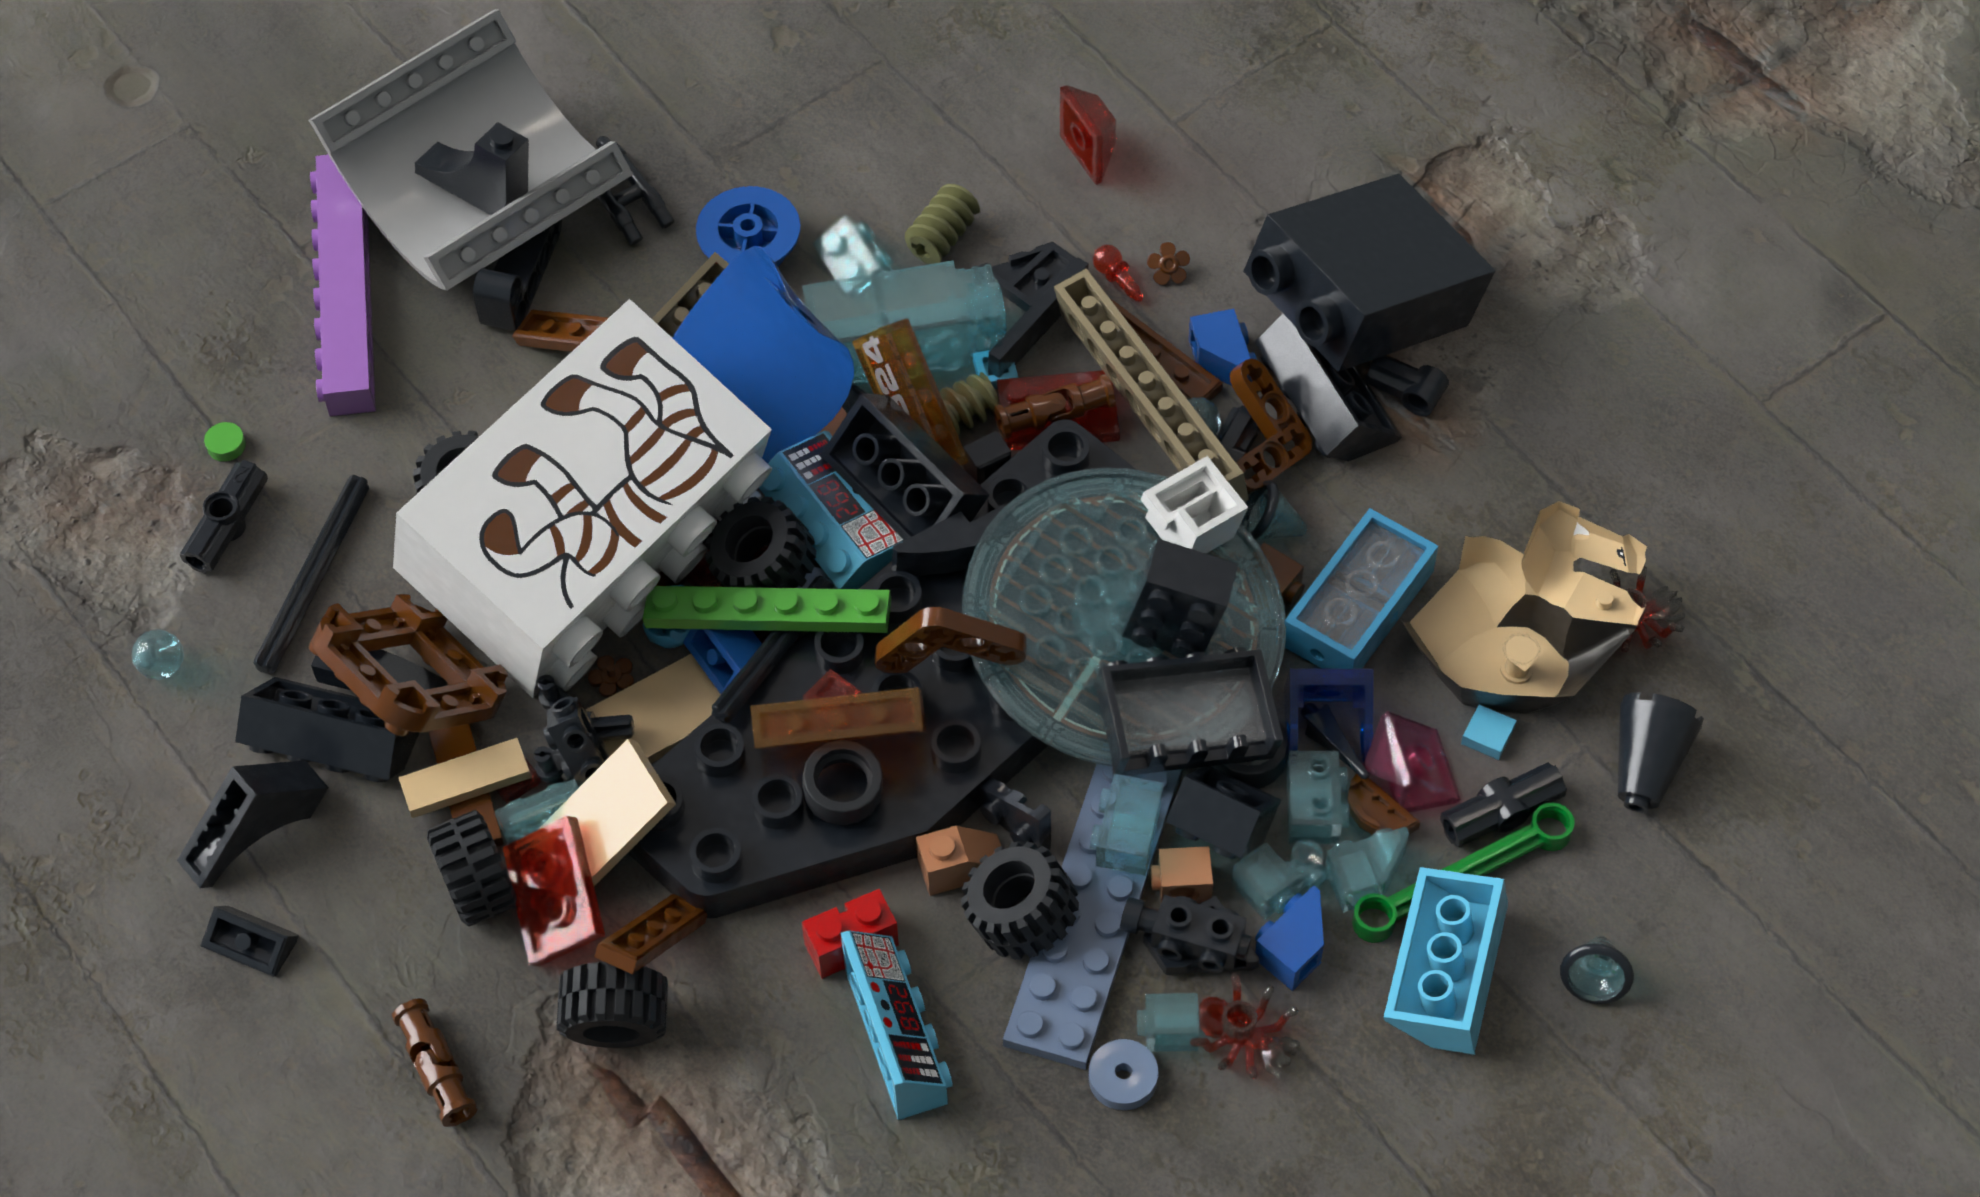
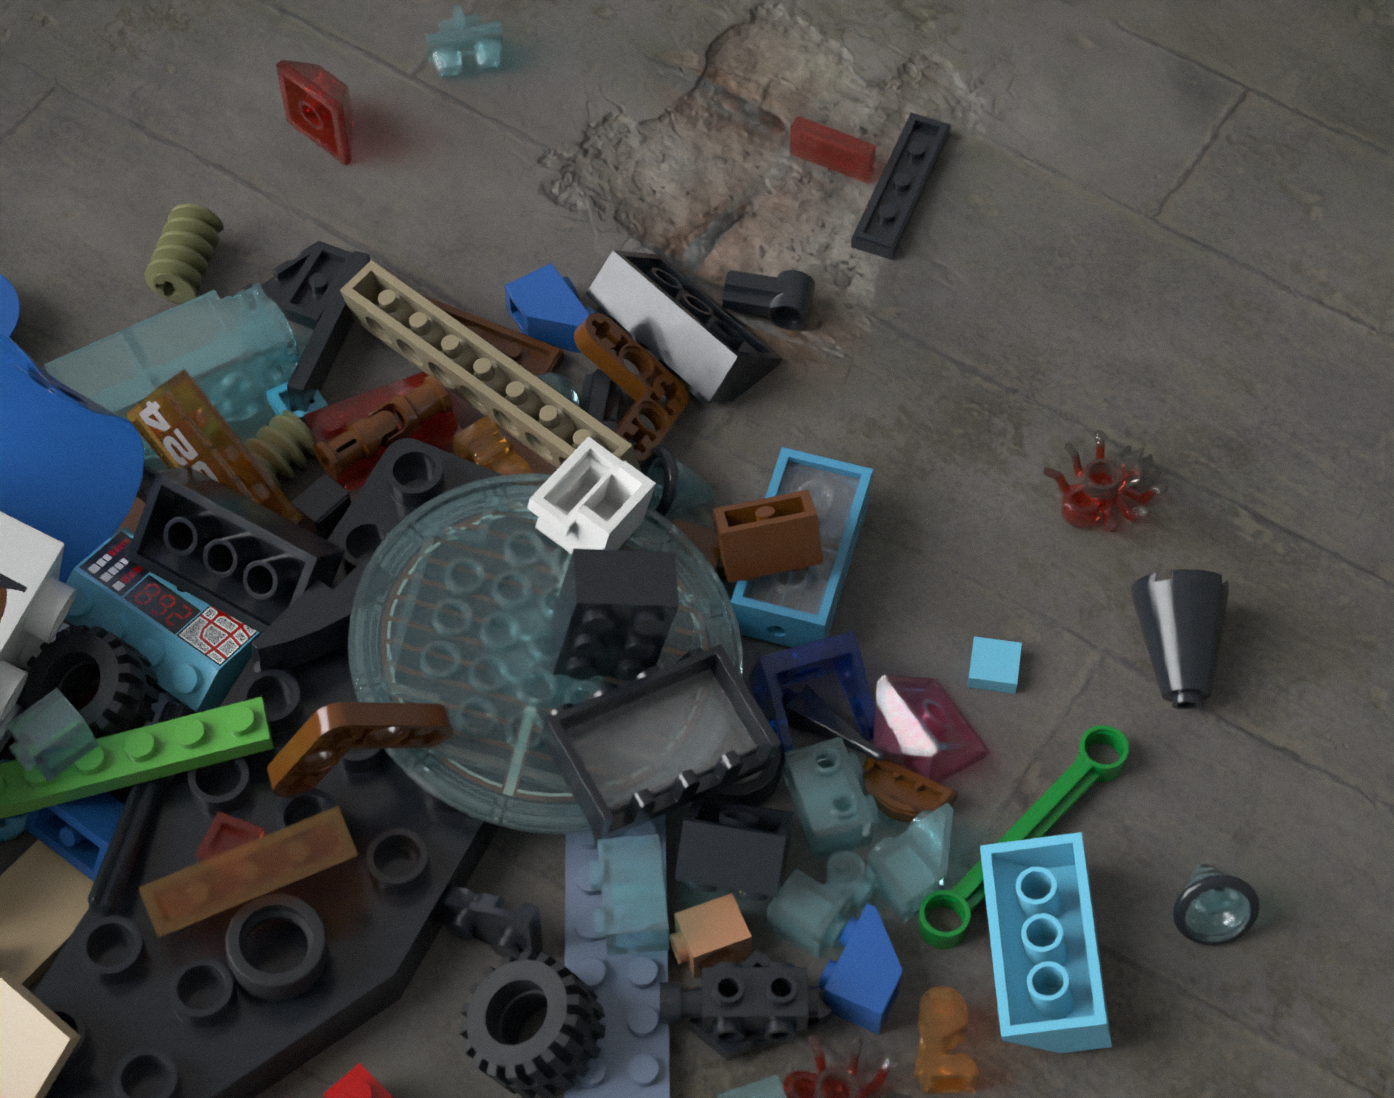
camera: 20 degrees left, 0 degrees up
(720, 574) = (50, 736): none -> clear light blue brick
(850, 250) = (85, 310): clear light blue bracket -> none
(951, 854) = (432, 994): nougat slope -> none
(1108, 261) = (389, 247): clear red bar -> none
(1132, 445) = (488, 448): none -> clear orange leg
(1168, 264) = (458, 233): reddish brown plant -> none
(1227, 101) = (463, 37): none -> clear light blue hips
(1329, 575) = (768, 536): none -> reddish brown brick
(1341, 1001) = (941, 1028): none -> clear orange leg
(1368, 271) = (689, 182): black brick -> none
(1503, 804) = (1041, 744): black piece -> none
(1509, 276) = (832, 149): none -> clear red tile
(1525, 625) = (996, 535): tan piece -> none
(1553, 319) = (901, 186): none -> black tile

